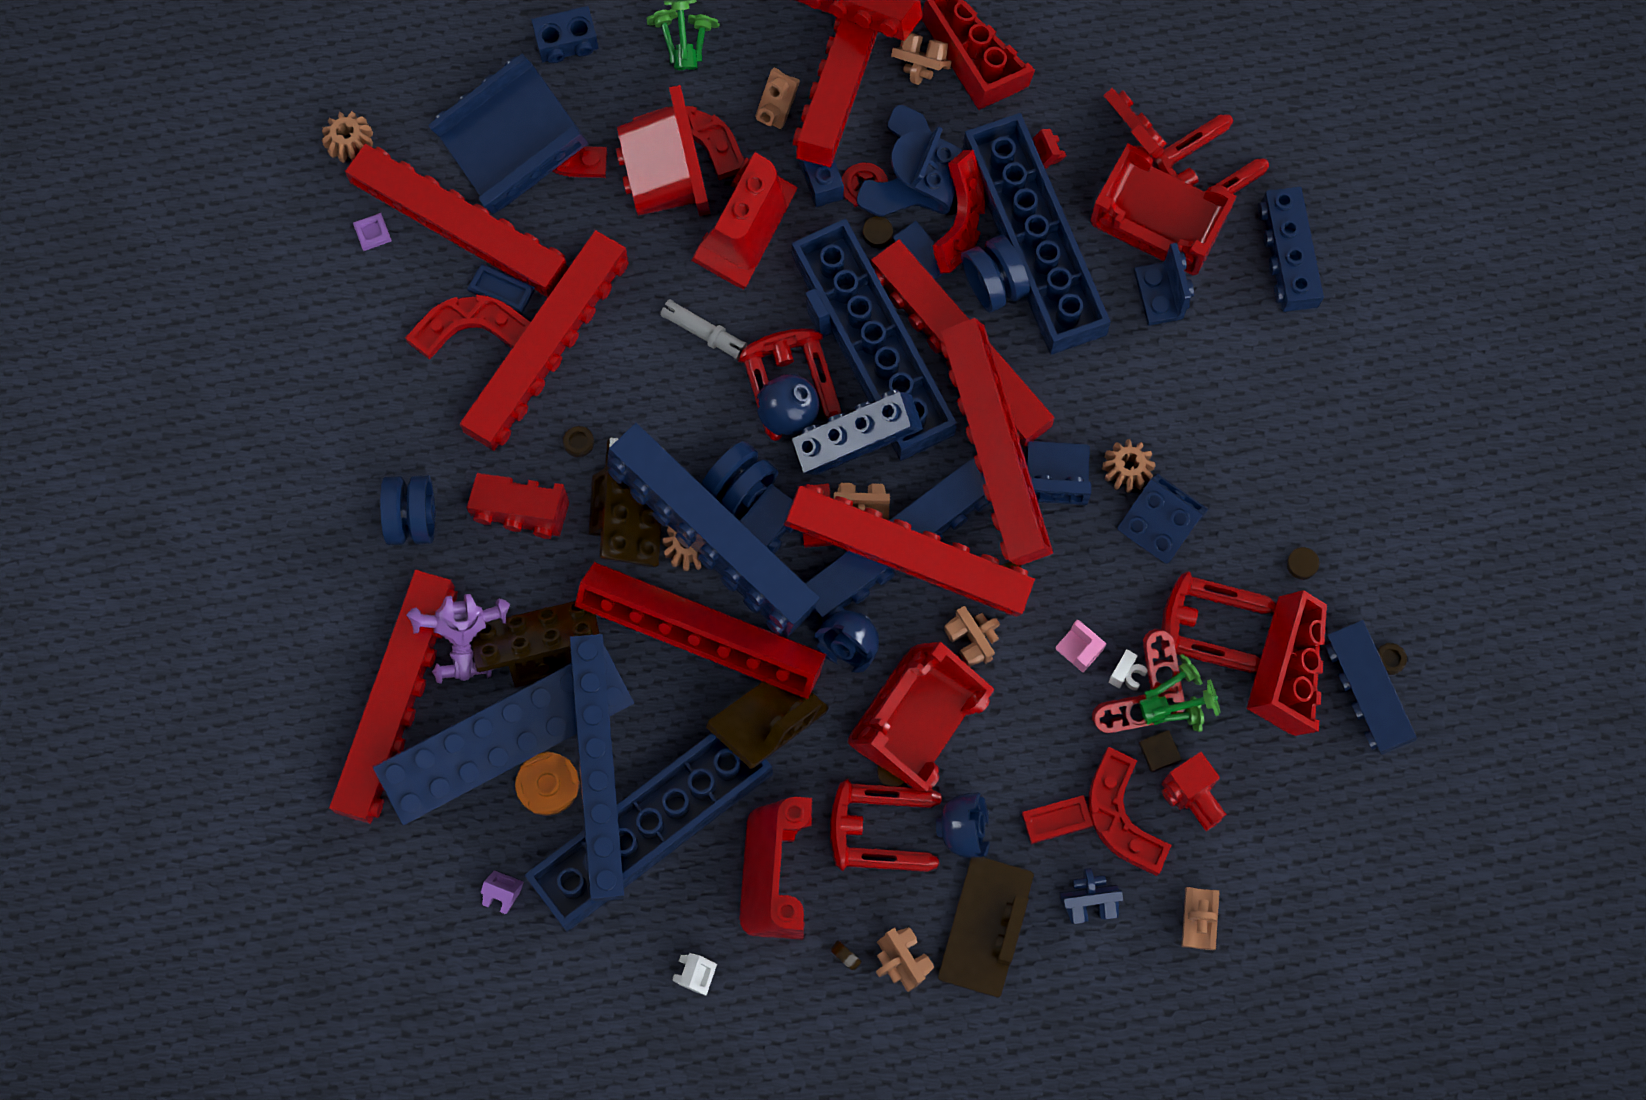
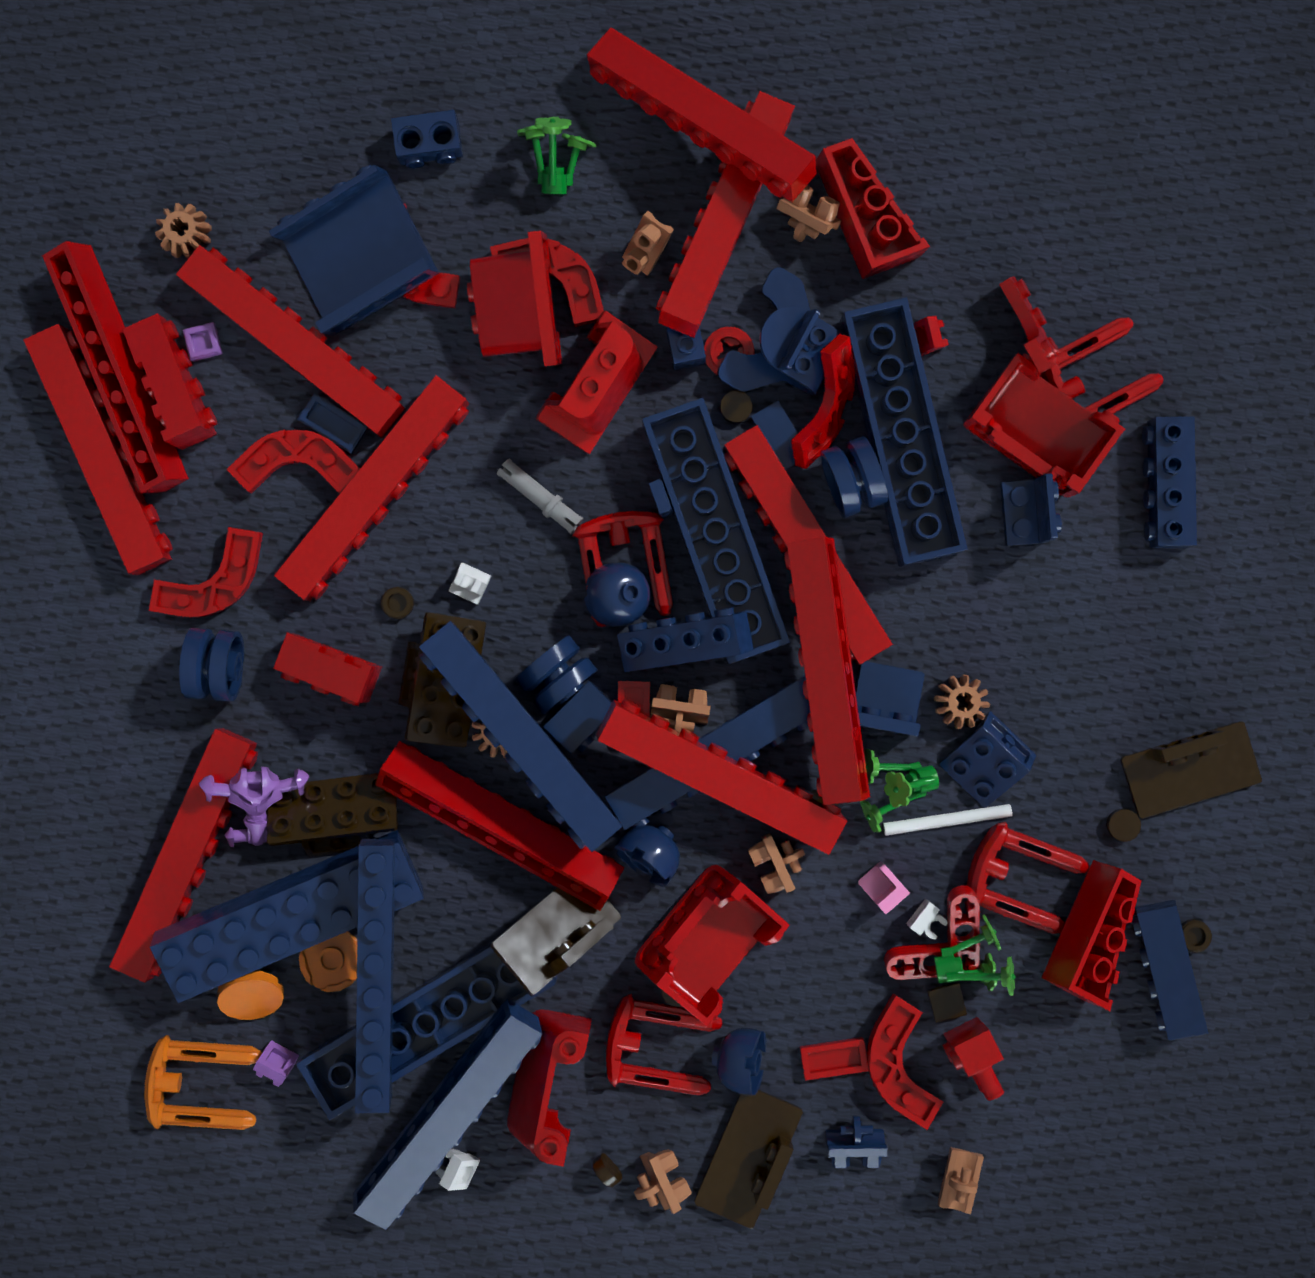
camera: 10 degrees right, 15 degrees up
(283, 336) = (98, 449): none -> red brick
(295, 259) = (112, 366): none -> red brick
(346, 267) = (170, 382): none -> red wedge
(386, 921) = (160, 1081): none -> orange piece
(404, 451) = (222, 589): none -> red plate
(471, 821) = (250, 996): none -> orange tile
(646, 415) = (470, 583): none -> white tile
(679, 910) = (447, 1114): none -> brick
(1080, 543) = (898, 787): none -> plant
(1133, 579) = (947, 819): none -> white bar
(1357, 502) = (1191, 769): none -> dark brown bracket

